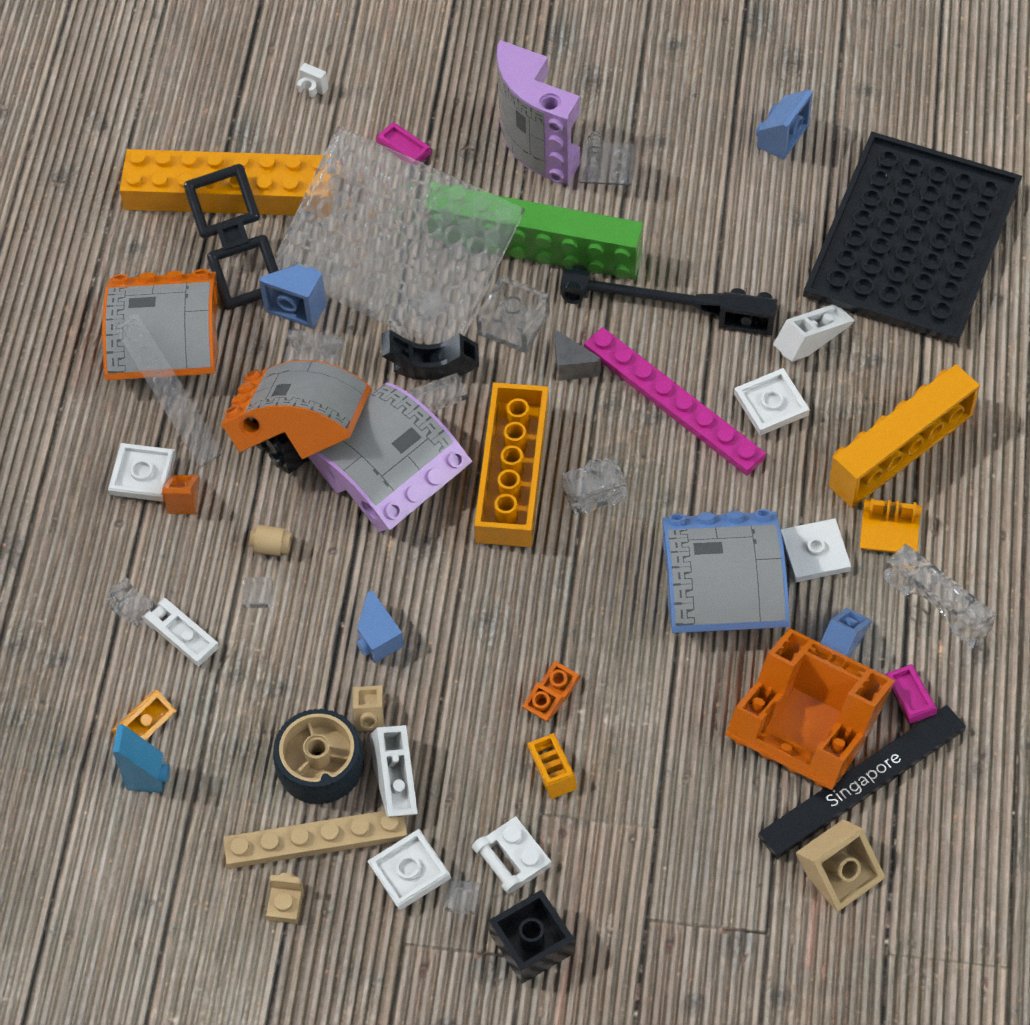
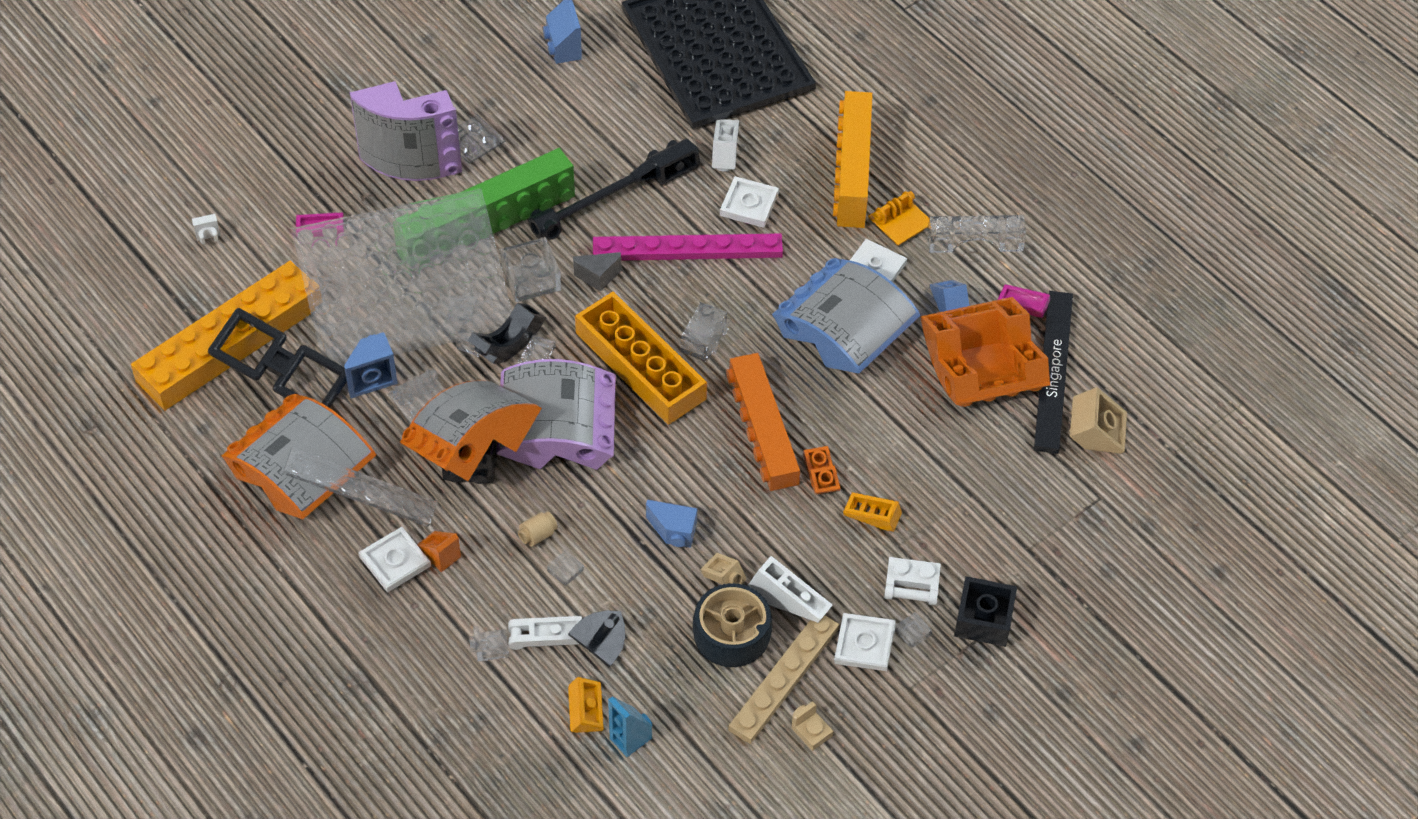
camera: 50 degrees left, 5 degrees down
(217, 672) = (601, 634): none -> shield
(550, 607) = (763, 422): none -> orange brick

